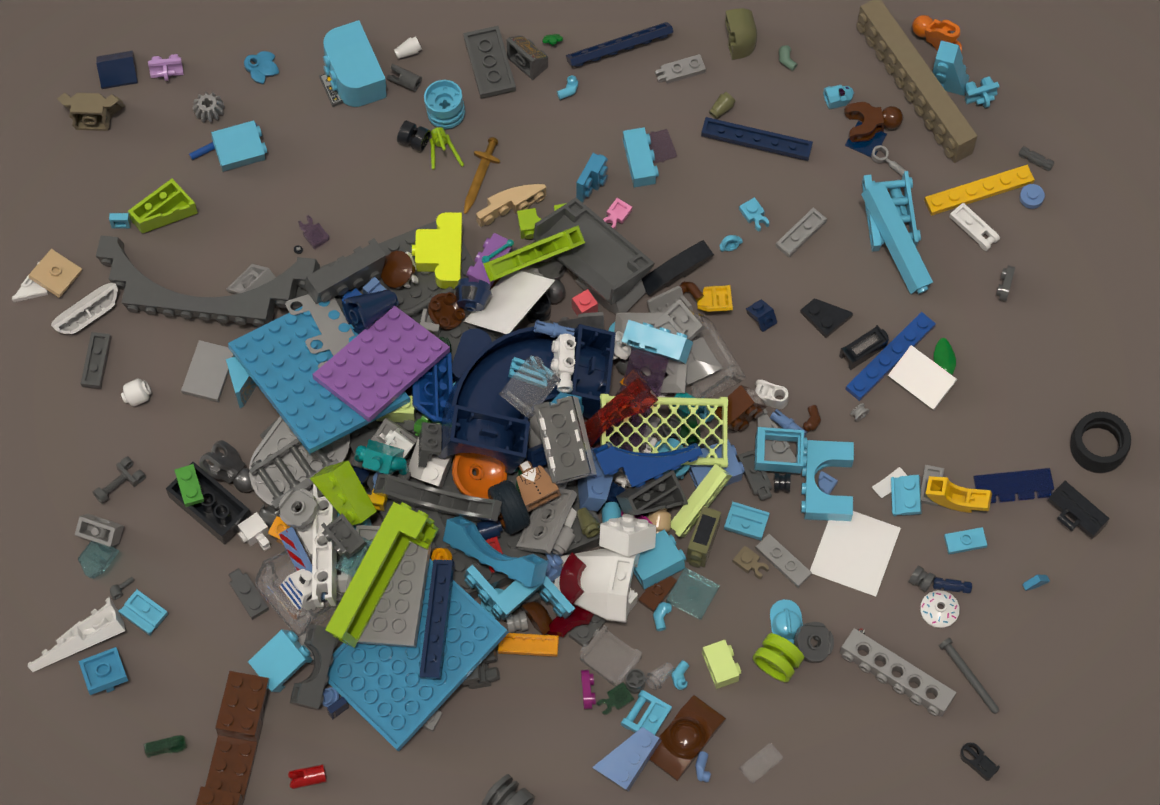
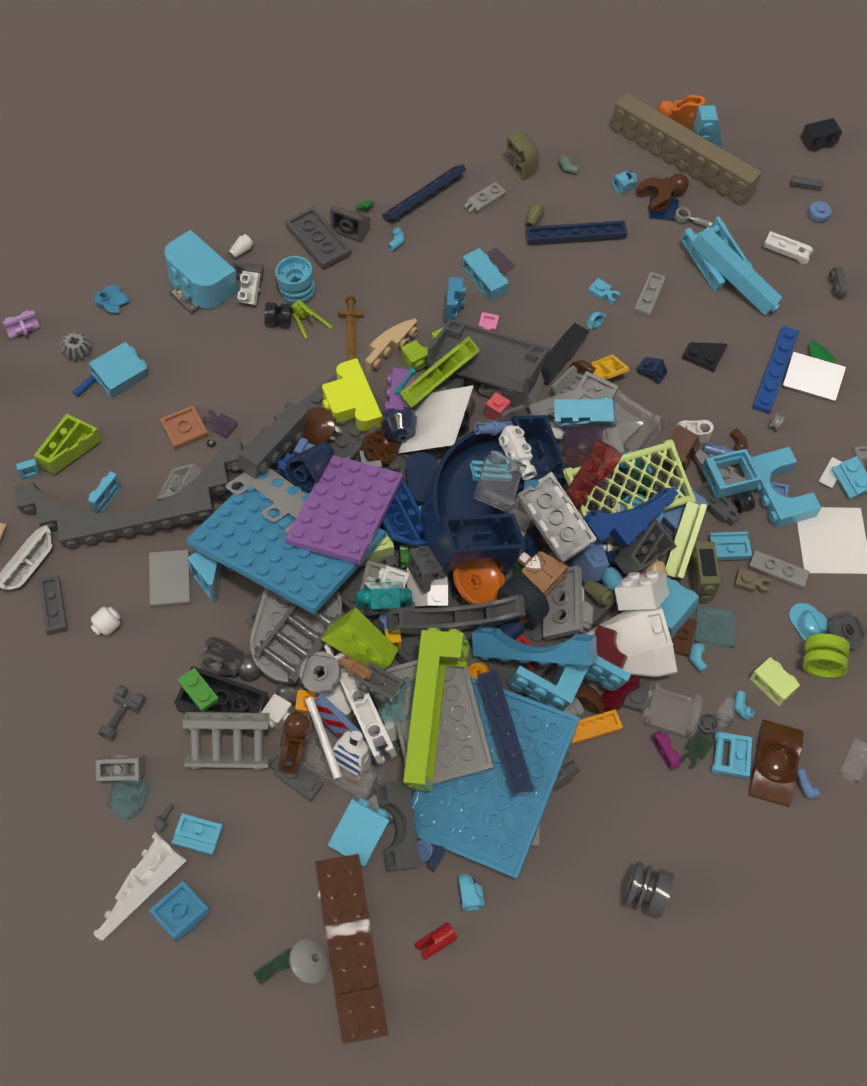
camera: 25 degrees left, 5 degrees down
(179, 269) = (105, 492): none -> medium azure plate
(186, 753) = (302, 964): none -> light grey dish
(206, 523) = (235, 721): none -> light grey fence
(257, 550) = (292, 740): none -> reddish brown piece
(279, 225) = (184, 427): none -> nougat tile
(279, 566) = (323, 737): none -> white bar
(328, 514) = (355, 667): none -> medium nougat axle
(353, 748) = (470, 893): none -> medium azure rock
(397, 98) = (249, 287): none -> white hips
(629, 758) = (741, 803): medium blue wedge -> none
(865, 347) = (753, 366): black window -> none
(979, 190) = (774, 219): yellow plate -> none
(982, 94) = (740, 146): medium azure hips -> none
(1080, 106) = (821, 133): none -> black brick

